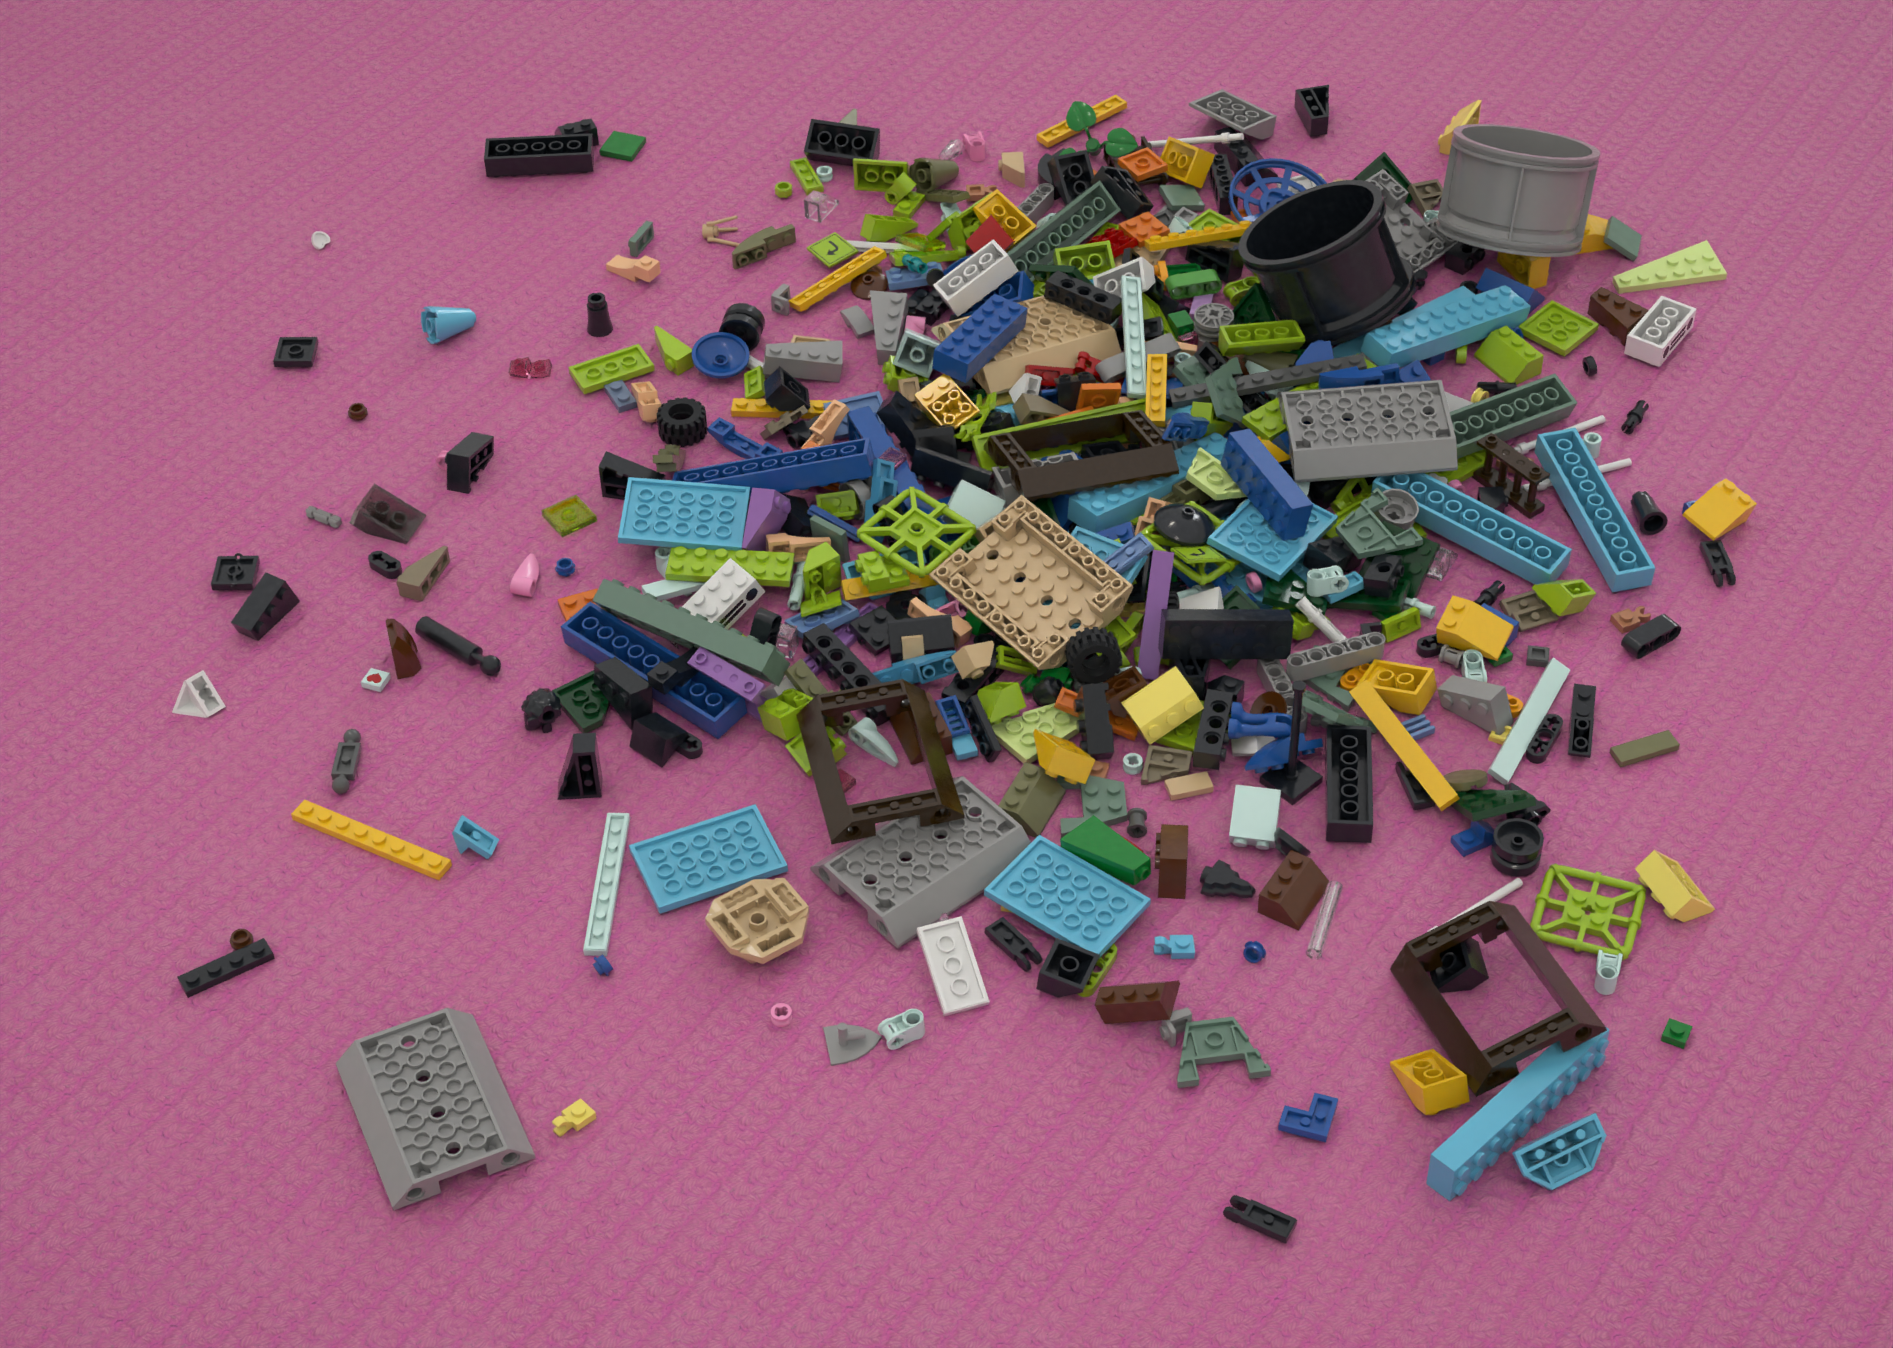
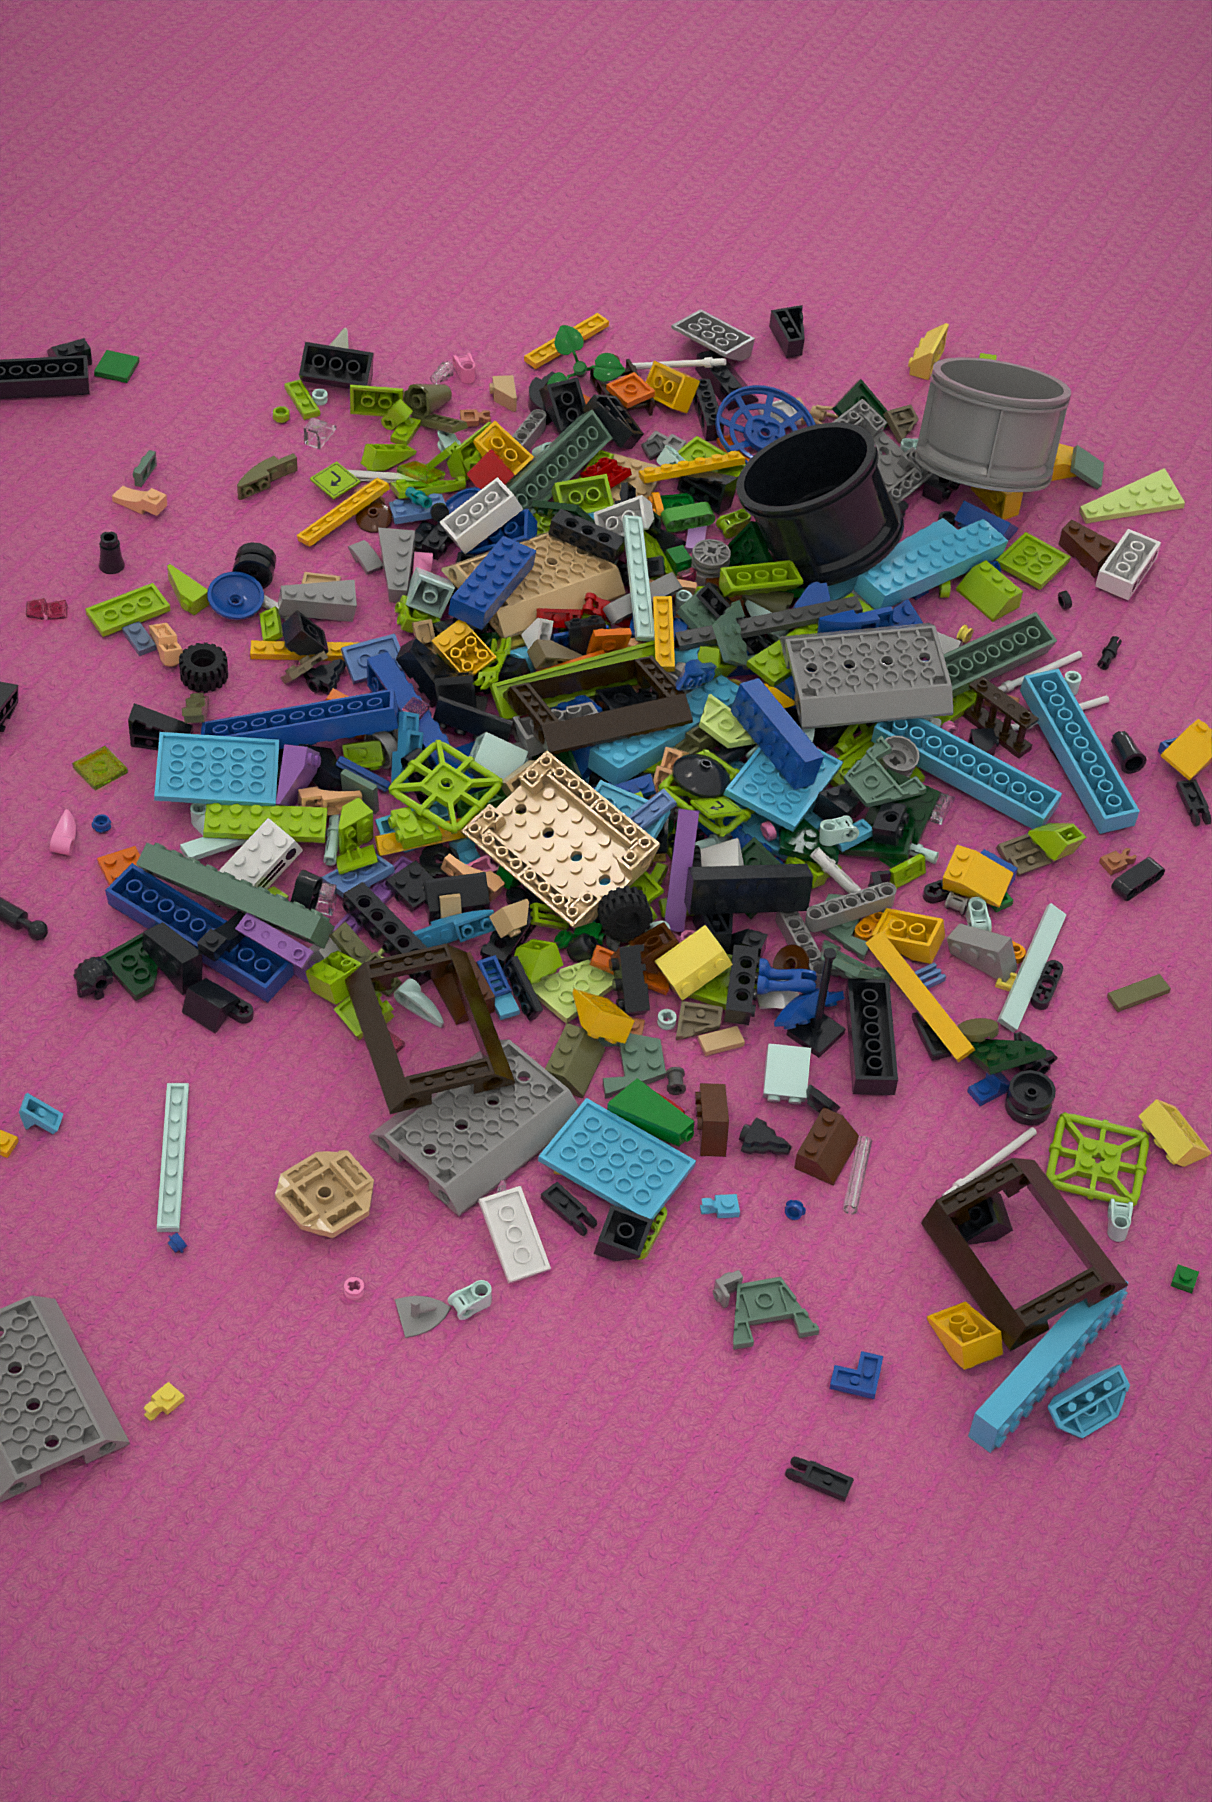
camera: 10 degrees left, 5 degrees up
(581, 770) = (138, 1041): black wedge -> none
(707, 858) = (269, 1128): medium azure plate -> none
(711, 231) = (213, 459): tan plant -> none
(742, 446) = (264, 691): blue slope -> none
(780, 299) = (288, 534): light grey bracket -> none
(828, 423) = (347, 672): light nougat slope -> none
(1137, 1002) = (691, 1265): reddish brown slope -> none
(1143, 228) = (636, 457): orange plate -> none
(1181, 196) = (668, 422): sand green tile -> none
(1490, 594) = (987, 839): black pin -> none
(1496, 387) = (981, 623): black axle -> none
(1537, 656) = (1035, 900): dark grey tile -> none
(1581, 720) = (1080, 967): black slope -> none

